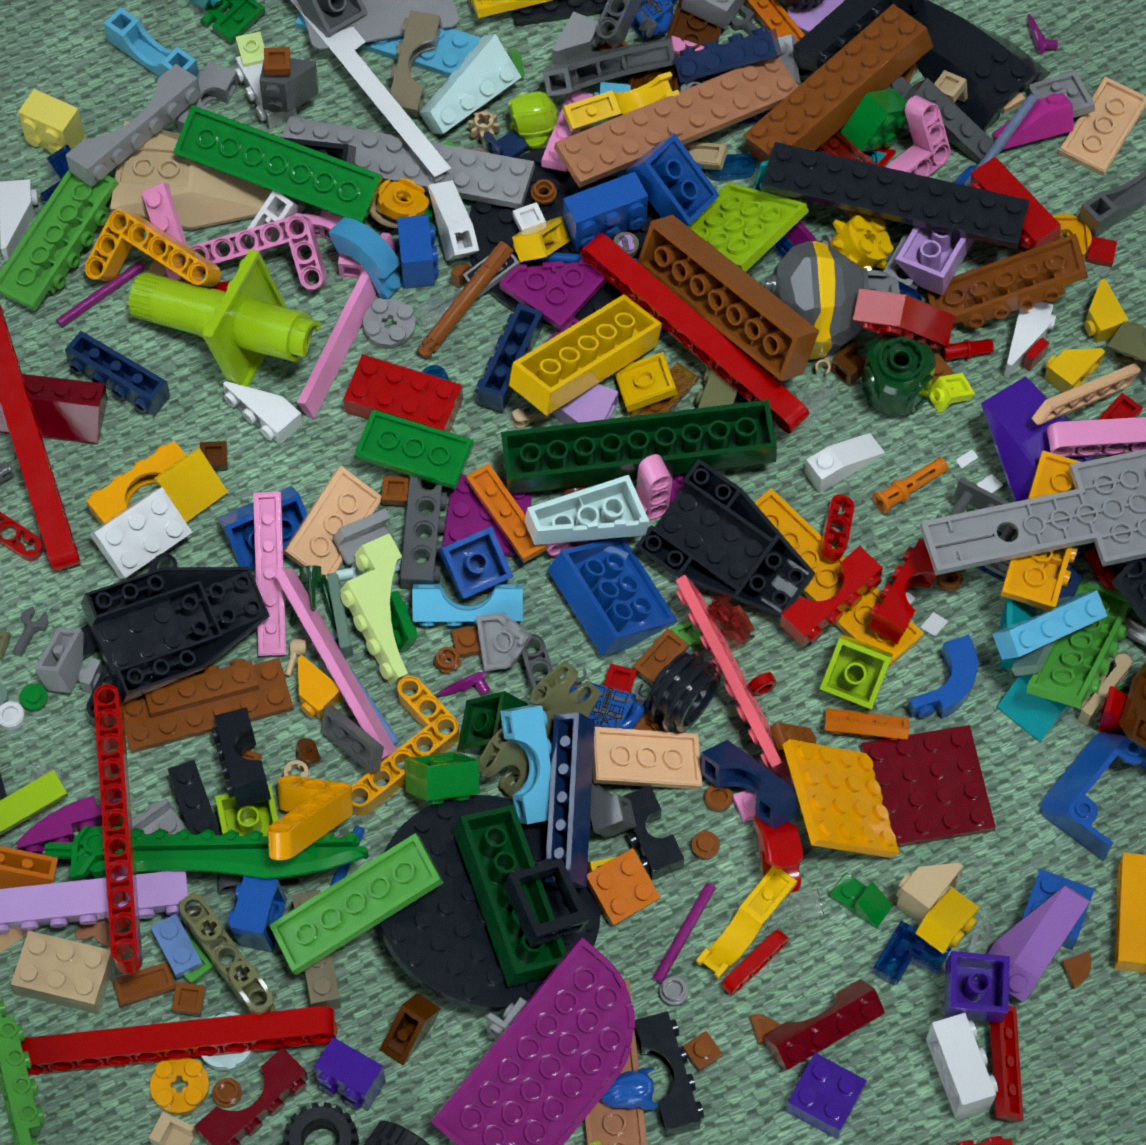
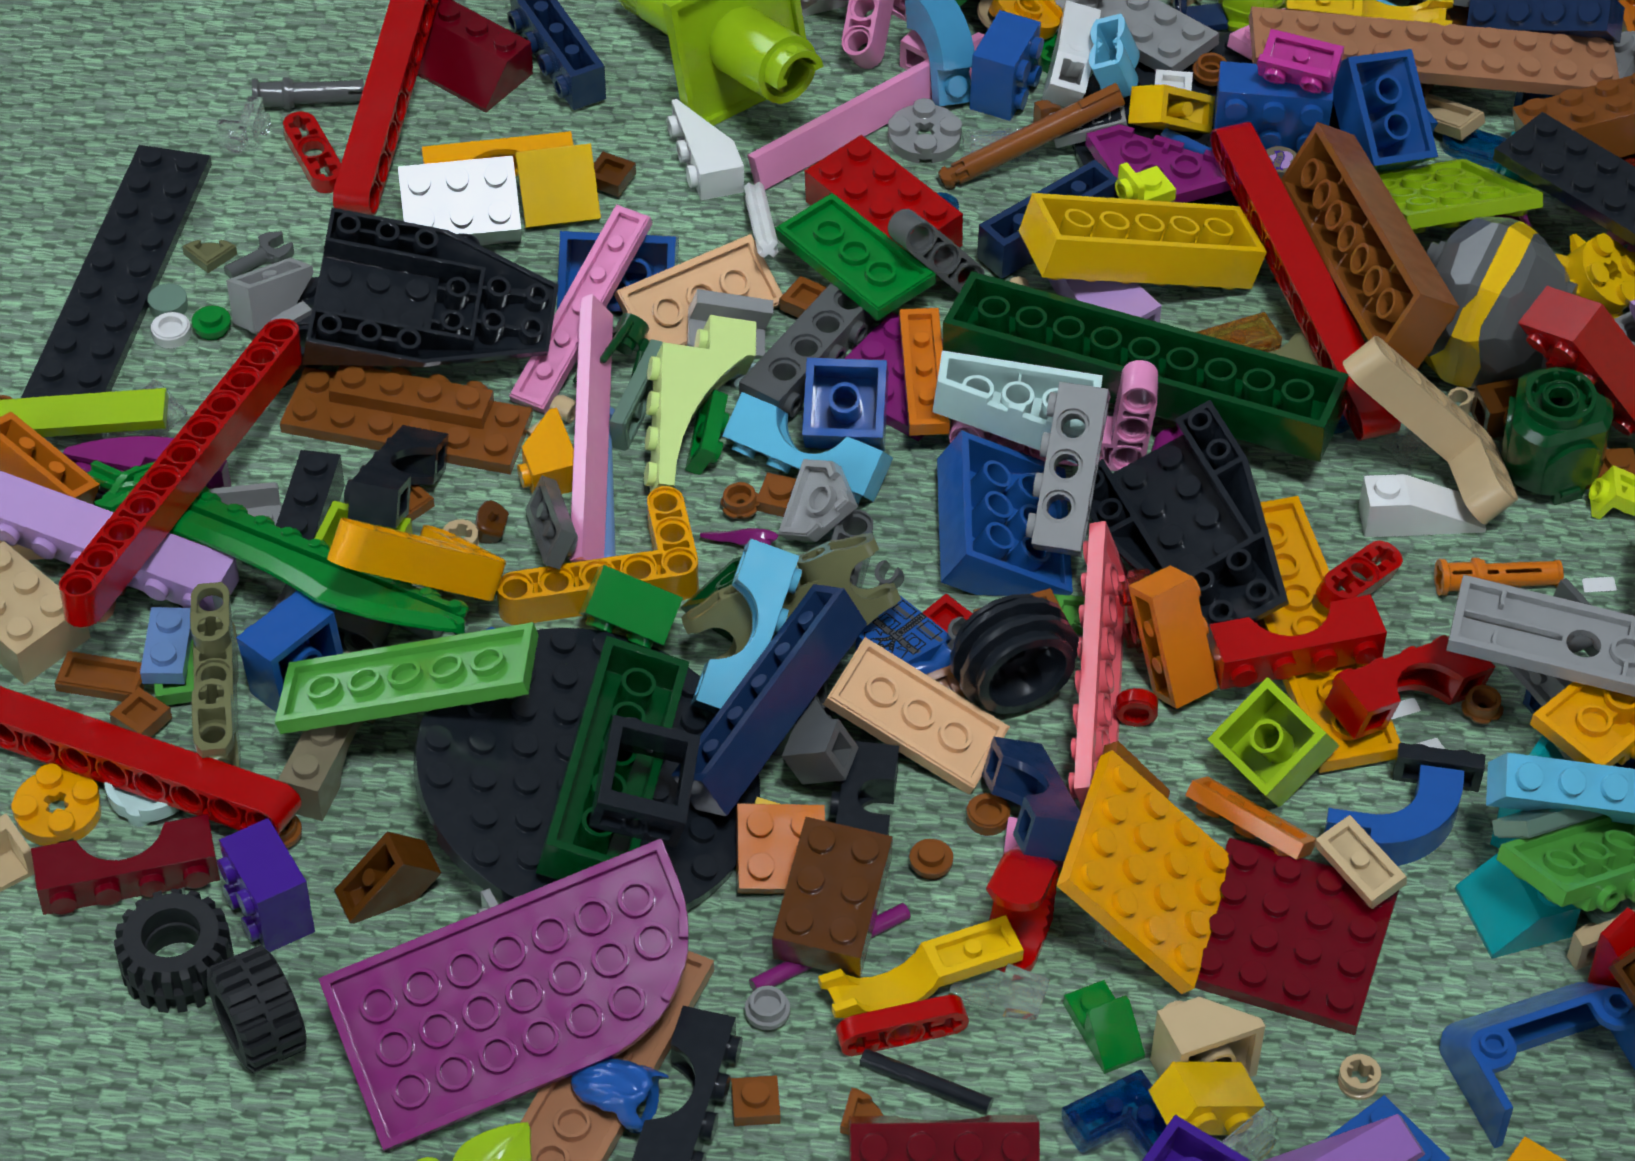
camera: 30 degrees right, 15 degrees down
(227, 1092) = (107, 840): dark orange plate -> none
(336, 448) = (761, 220): none -> white axle
(463, 422) = (925, 243): none -> dark grey beam
(484, 215) = (1114, 54): none -> medium azure brick
(562, 311) = (1144, 185): none -> neon yellow bracket
(616, 179) = (1300, 61): none -> dark pink bracket
(645, 382) = (1210, 312): yellow tile -> none
(664, 590) = (1091, 407): none -> light grey brick
(677, 907) = (832, 897): none -> reddish brown brick
(766, 632) = (1174, 636): none -> orange brick
(786, 987) = (926, 1081): none -> black bar
(838, 403) = (1438, 423): none -> tan beam
(935, 637) = (1412, 756): none -> black plate
(946, 725) = (1360, 861): none -> tan plate
(1012, 849) = (1351, 1085): none -> tan bush

